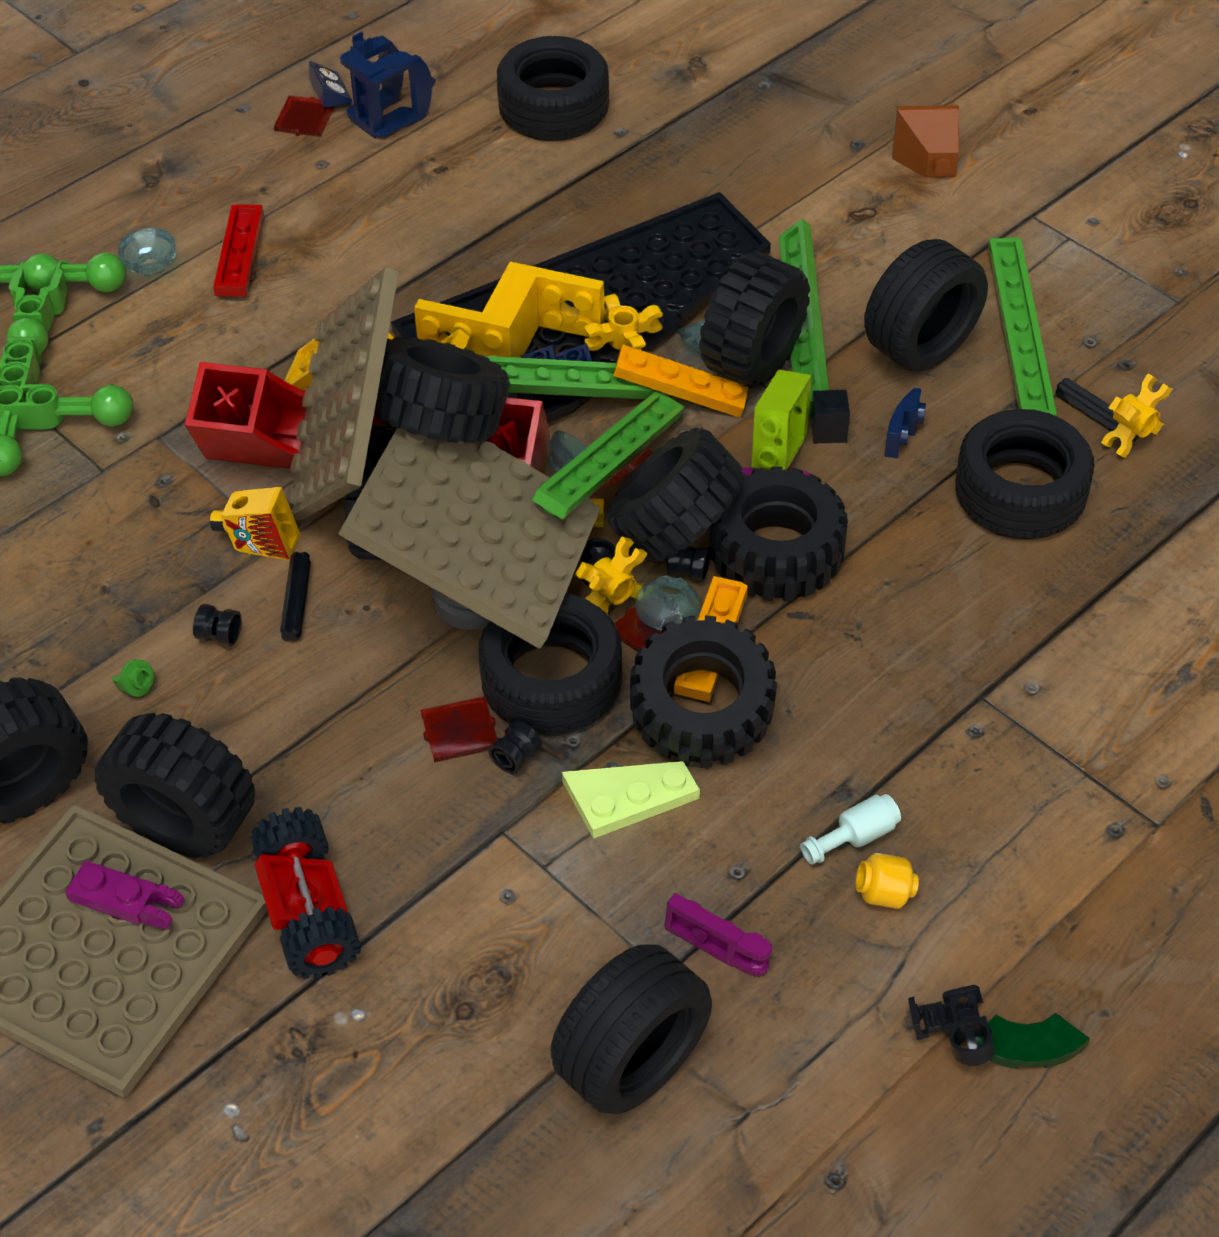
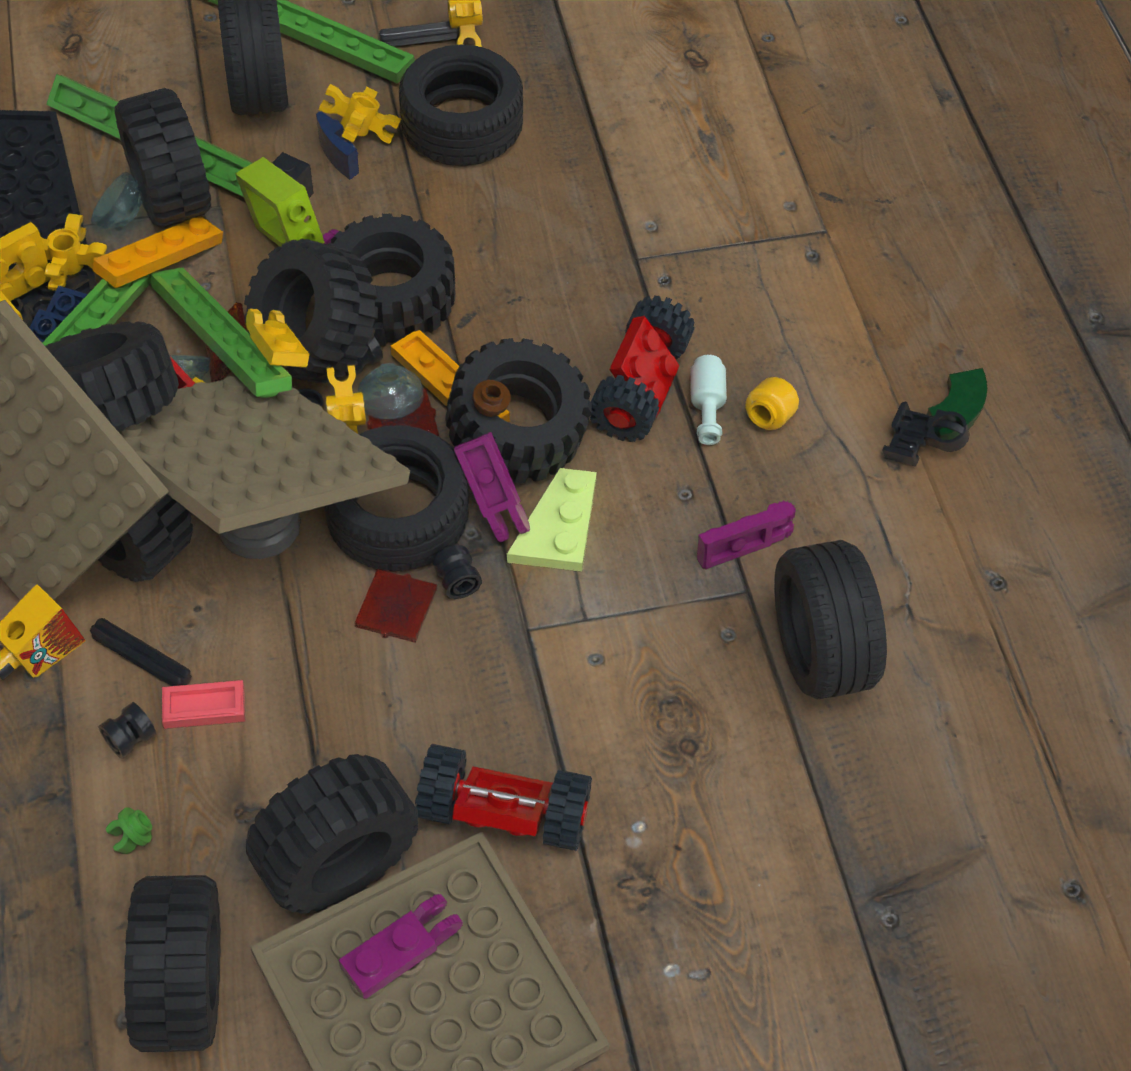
camera: 60 degrees left, 5 degrees up
(278, 659) = (203, 704): none -> coral tile
(602, 716) = (491, 484): none -> magenta hinge
(609, 484) = (276, 339): none -> yellow hinge
(665, 661) = (487, 405): none -> reddish brown plate
(834, 758) = (642, 369): none -> plate
(946, 414) = (359, 114): none -> yellow pin

